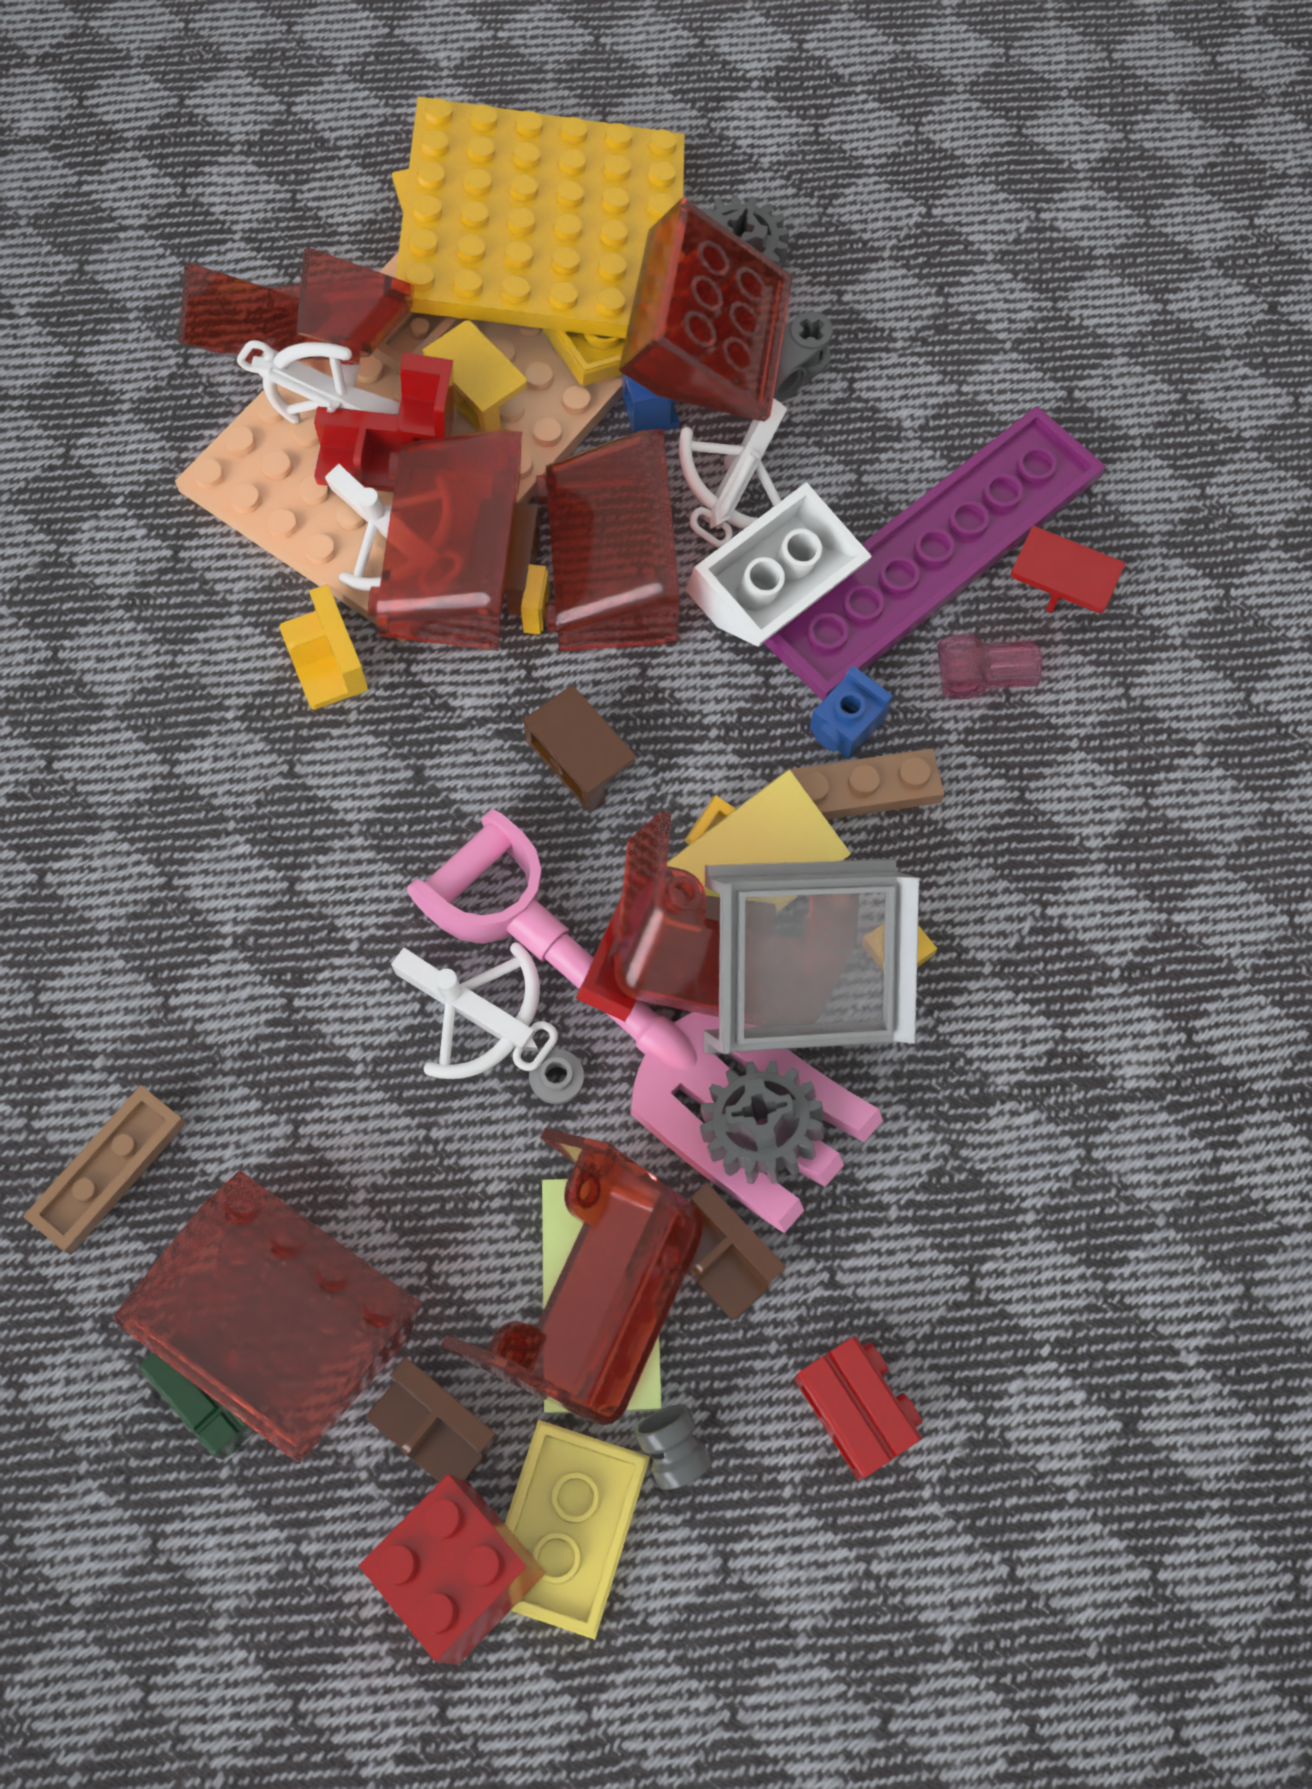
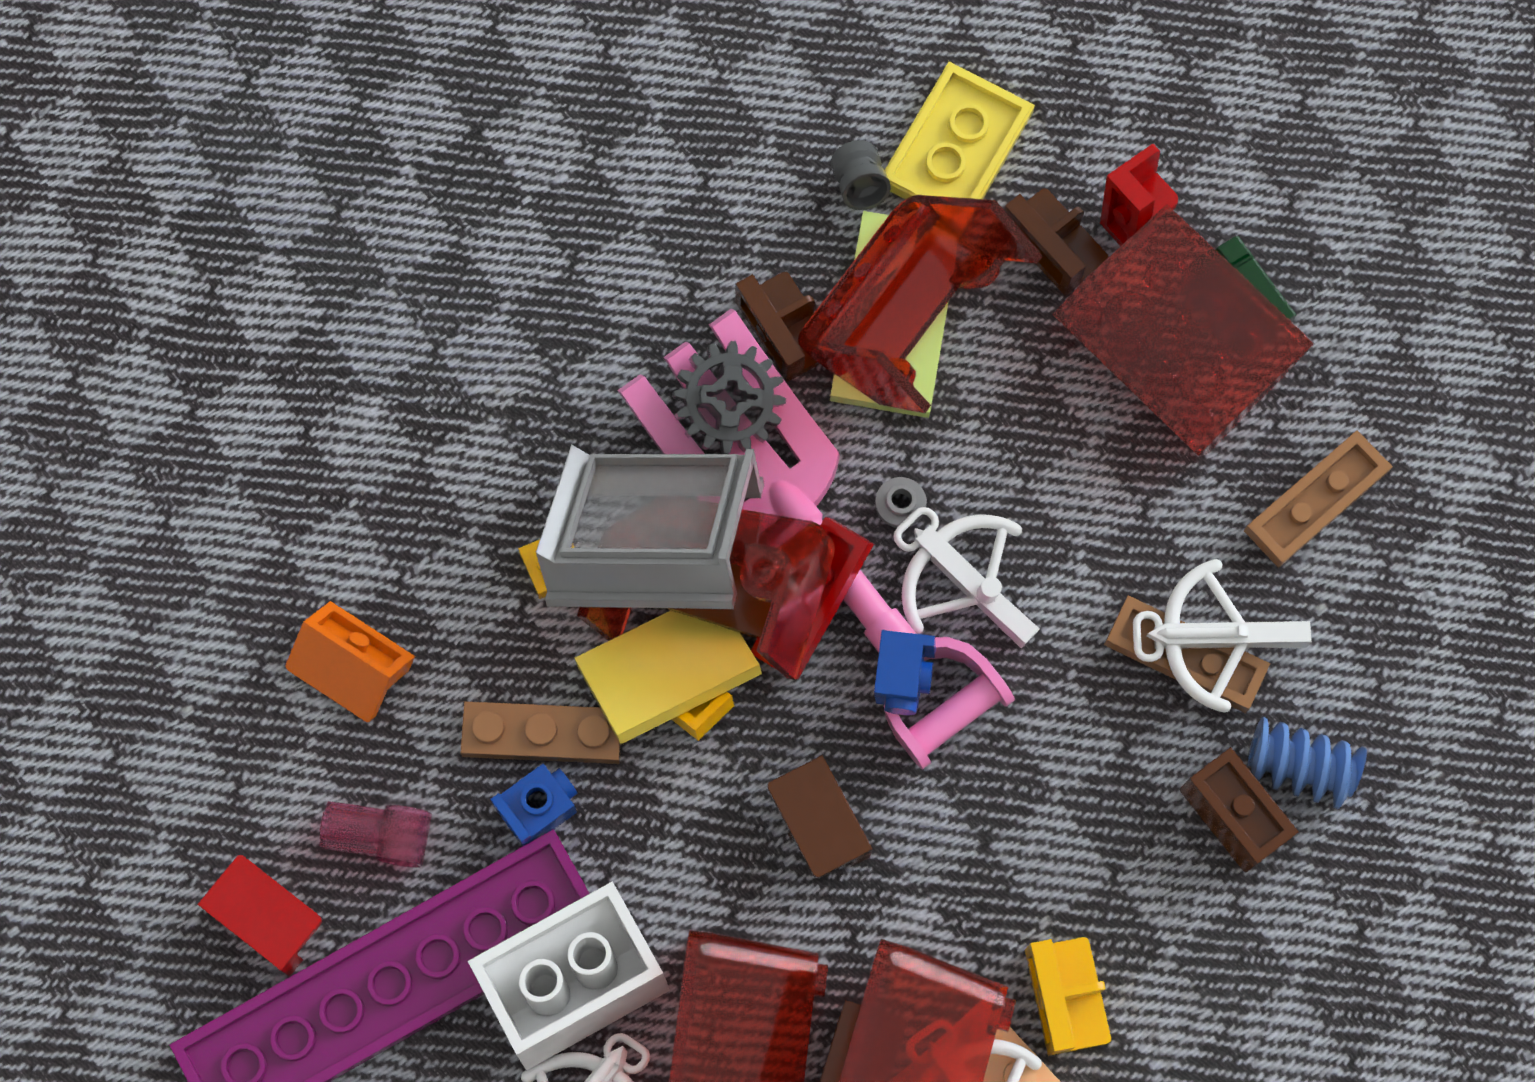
camera: 170 degrees left, 5 degrees up
(106, 889) = (1305, 762): none -> medium blue piece
(170, 823) = (1238, 810): none -> reddish brown panel
(187, 991) = (1234, 634): none -> white piece
(237, 976) = (1202, 663): none -> medium nougat plate
(332, 1473) = (1135, 195): none -> red panel
(451, 1570) = (1053, 117): red brick -> none
(521, 871) = (902, 670): none -> blue brick
(534, 599) = (833, 1004): yellow tile -> none
(859, 1406) = (700, 177): red brick -> none
(1066, 815) = (347, 660): none -> orange panel

